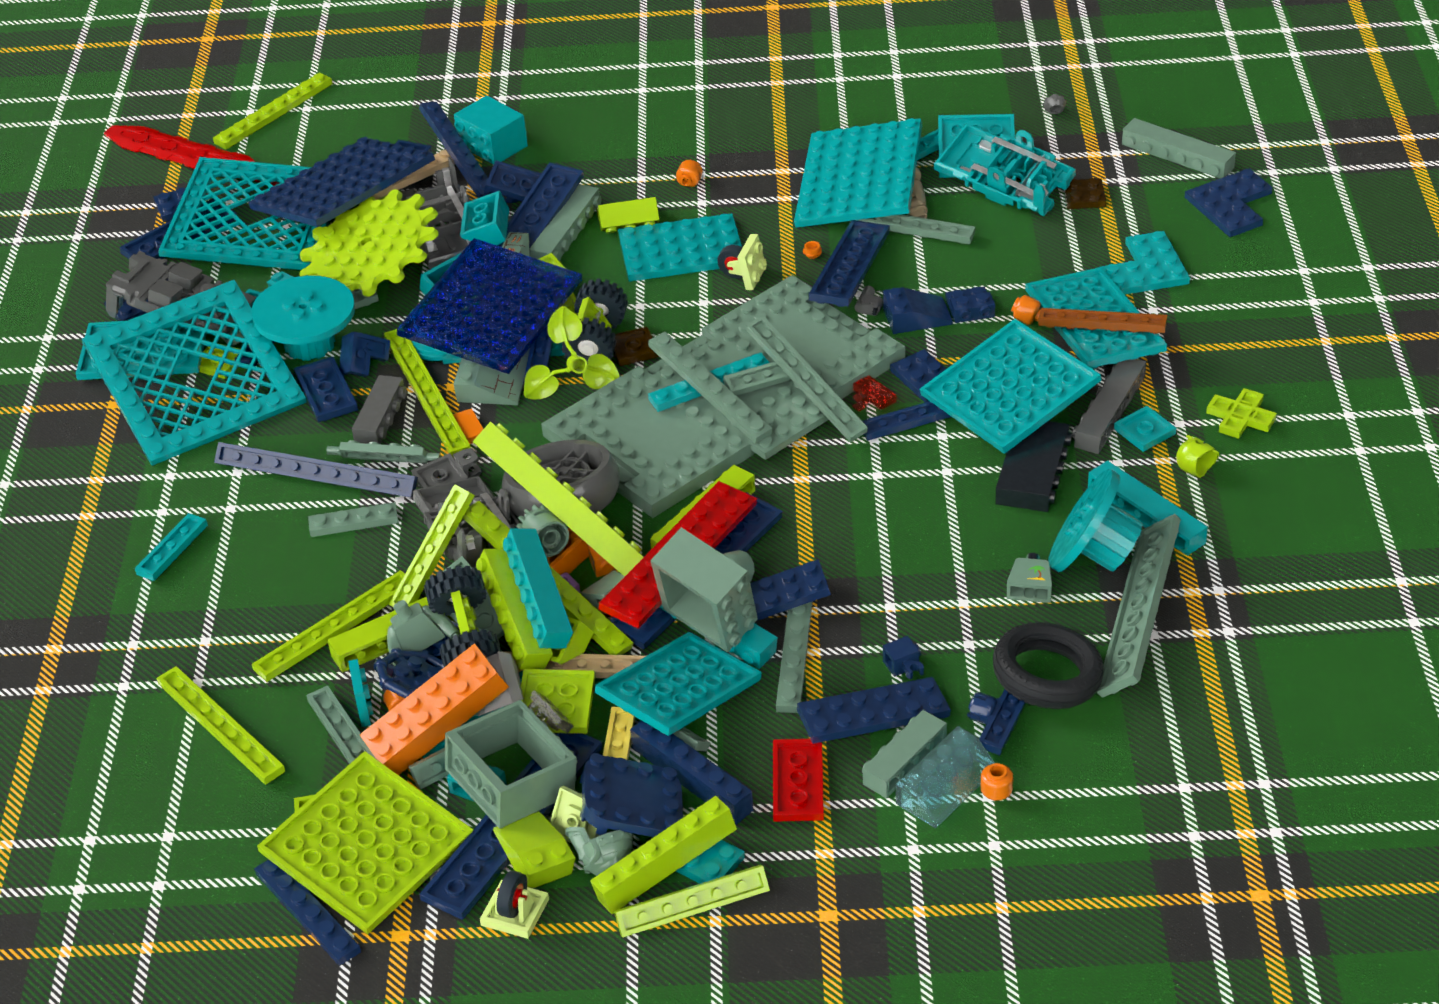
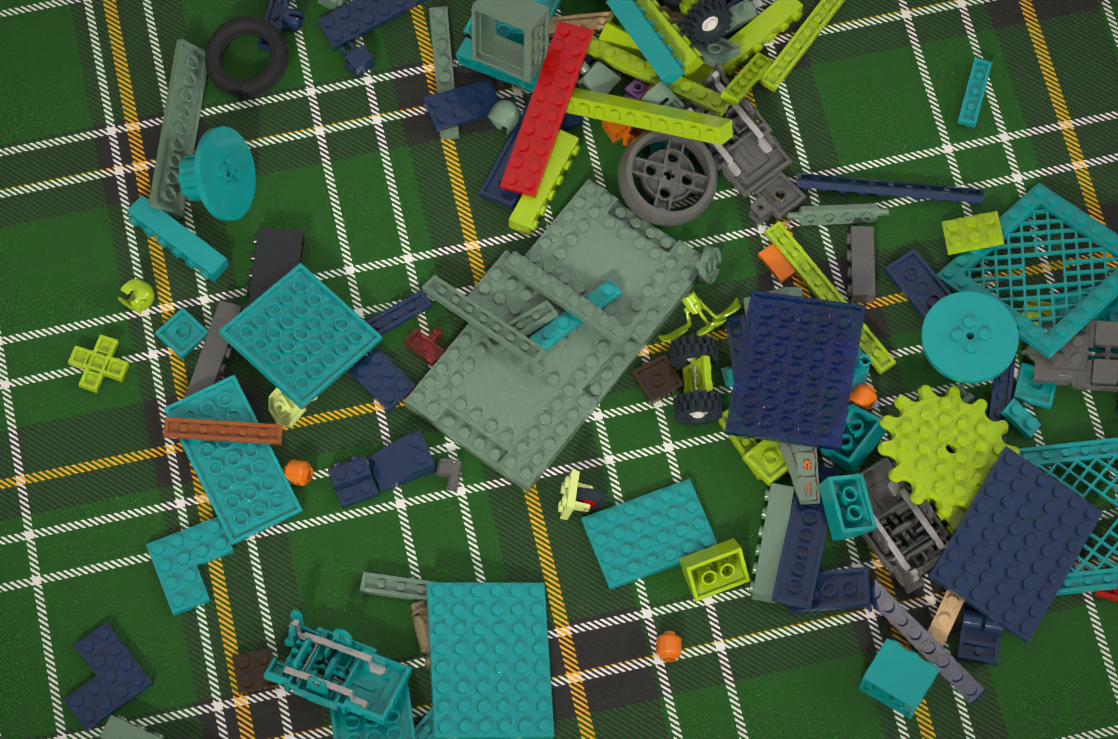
camera: 165 degrees right, 25 degrees up
(248, 419) = (972, 233): none -> lime plate
(353, 519) = (837, 145): sand green plate -> none
(357, 351) = (905, 332): dark blue panel -> none
(545, 410) = (708, 263): none -> sand green plate
(812, 249) = (517, 537): orange plate -> none
(849, 263) = (474, 507): dark blue plate -> none
(1030, 580) = (268, 149): sand green torso -> none

